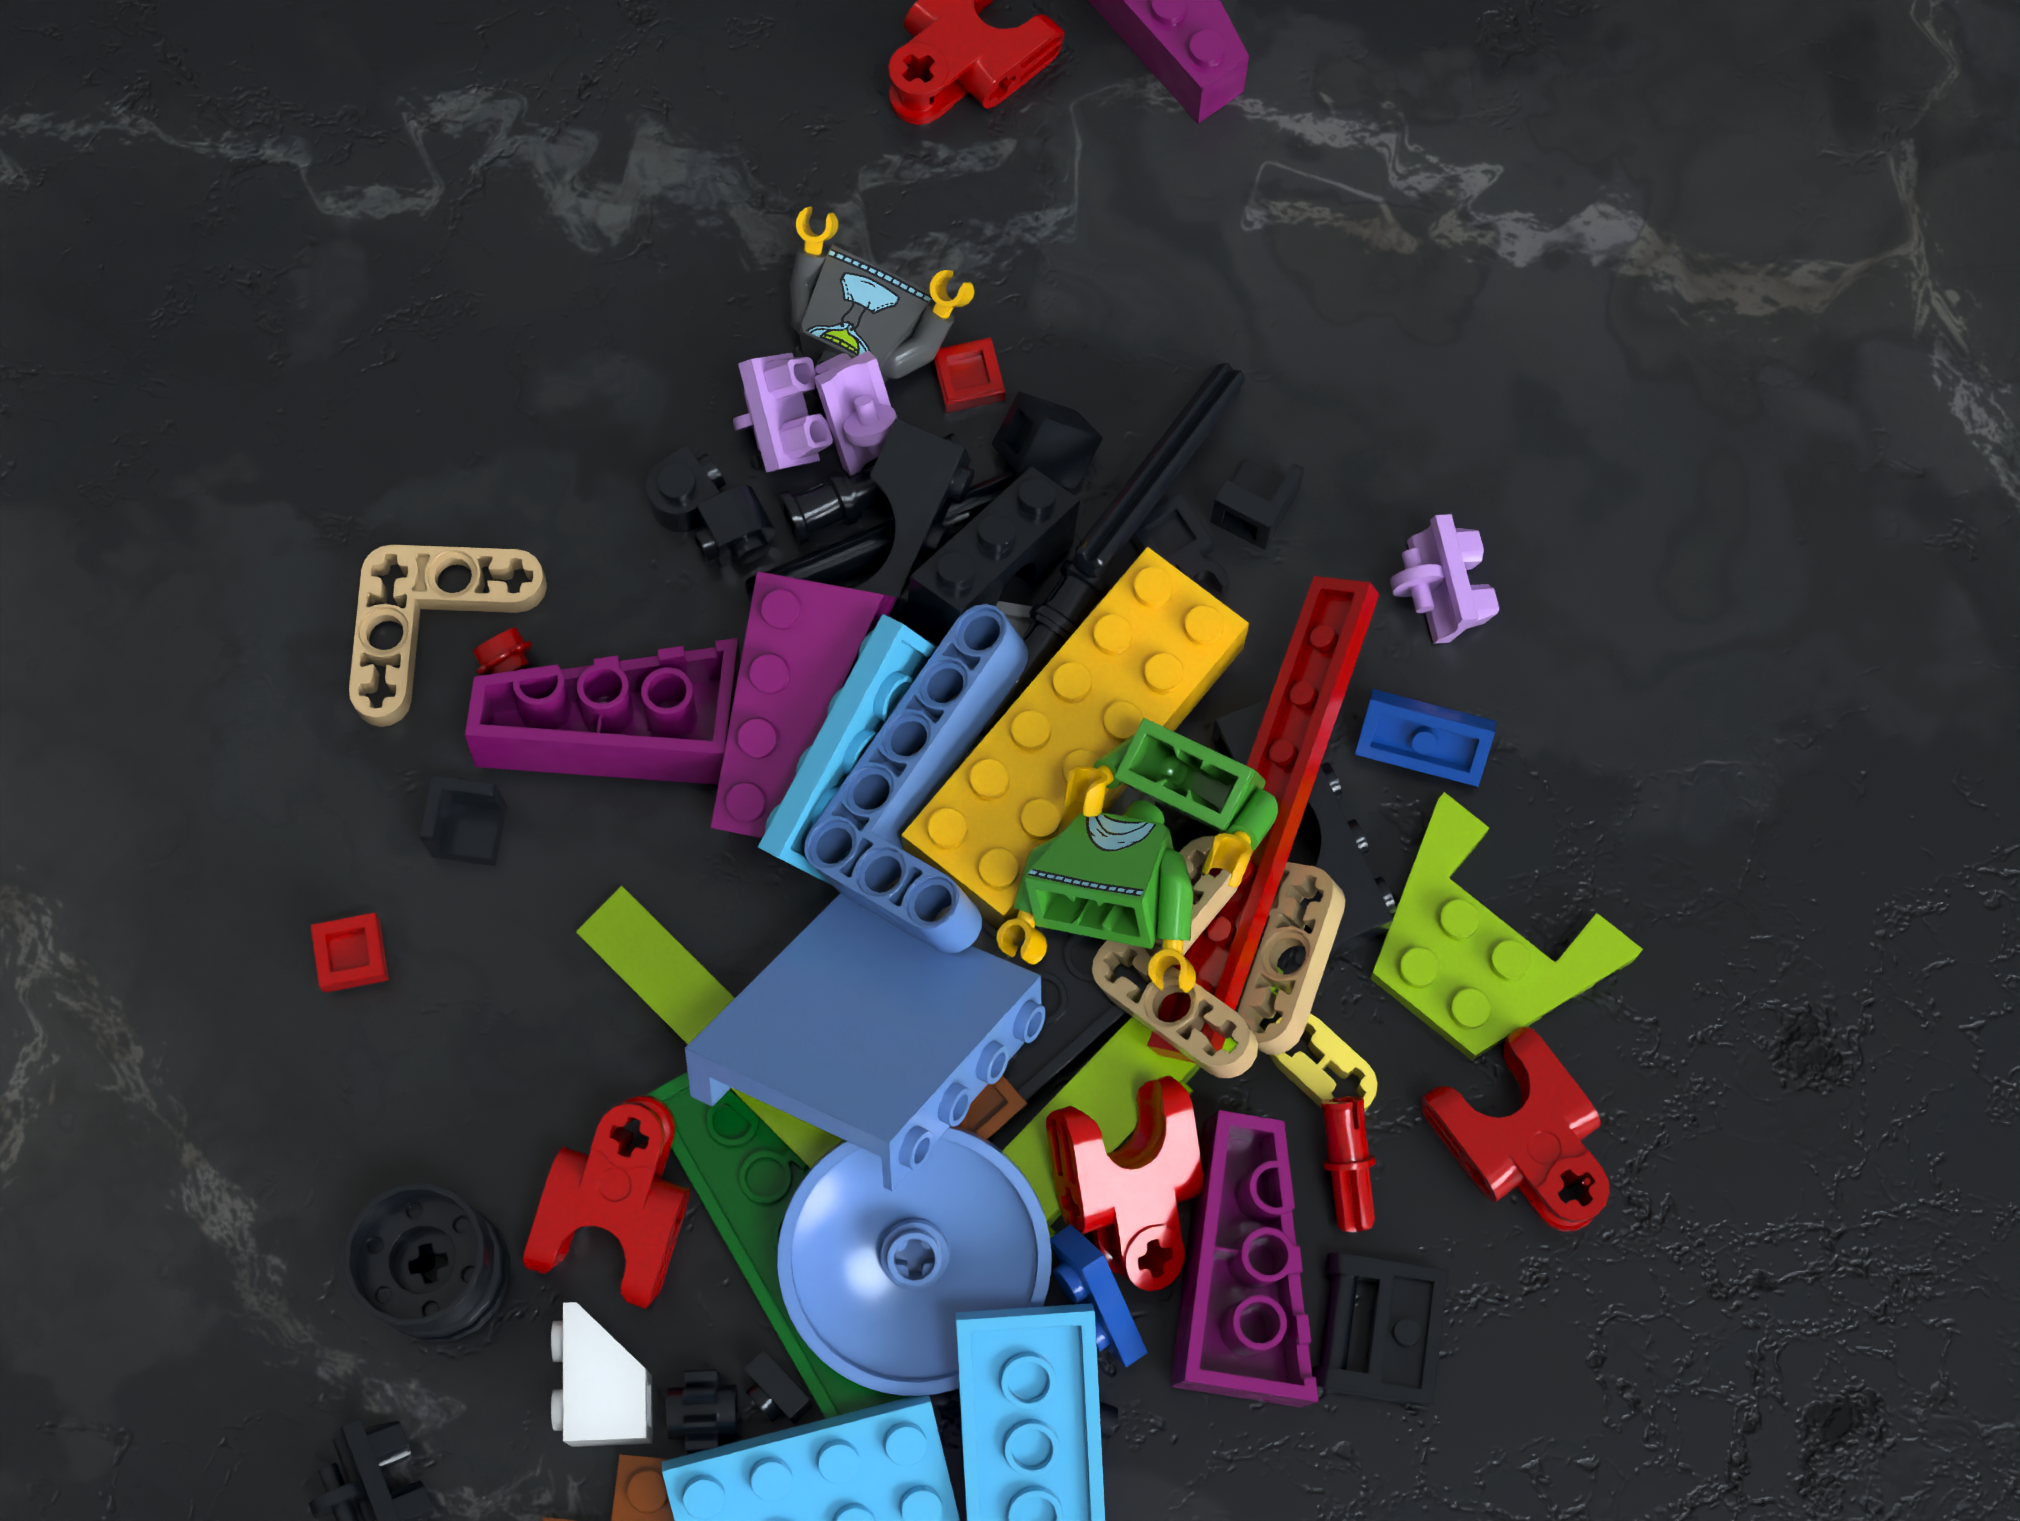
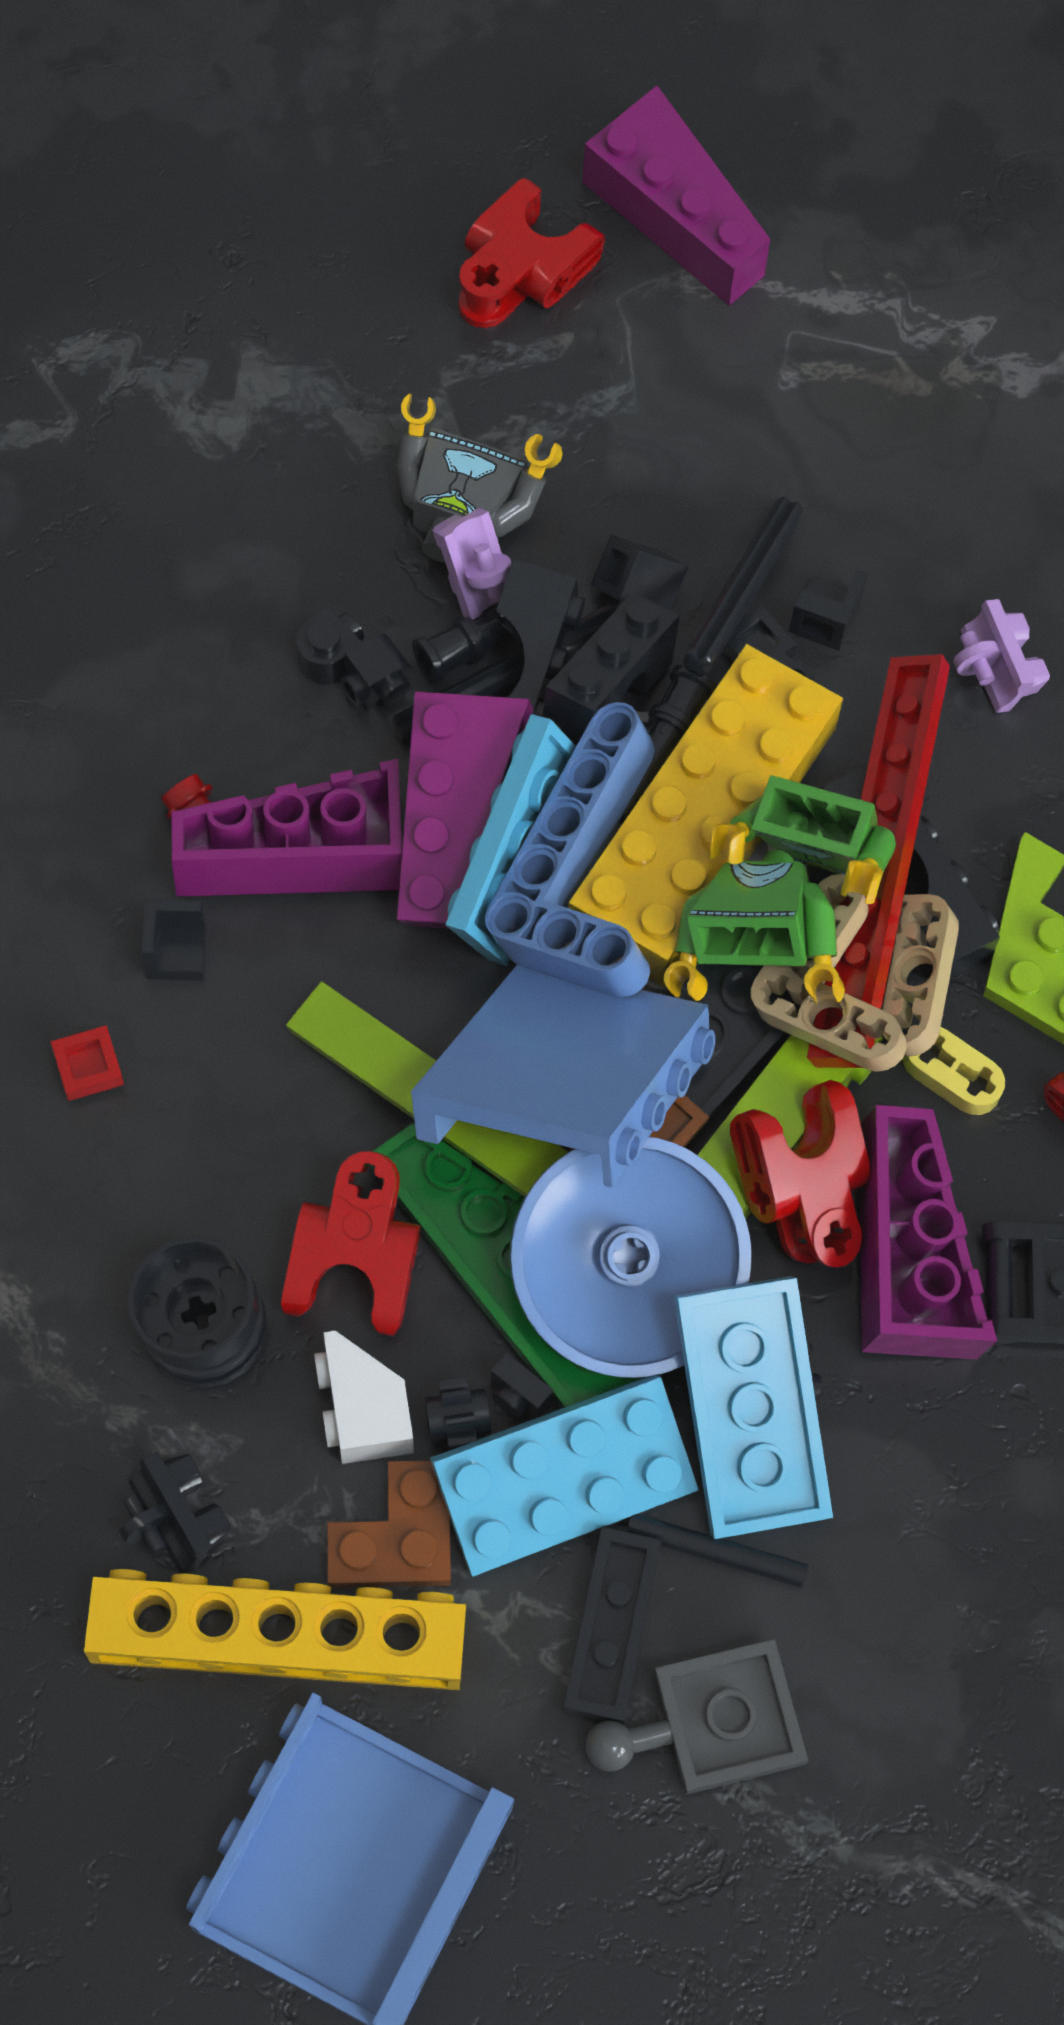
camera: 10 degrees left, 5 degrees down
(421, 591) = (105, 754): tan beam -> none
(779, 411) = (402, 570): lavender hips -> none
(968, 375) = (562, 529): red tile -> none
(1087, 1280) = (783, 1253): blue plate -> none
(1349, 1162) = (990, 1144): red axle -> none
(1425, 737) = (1002, 788): blue plate -> none

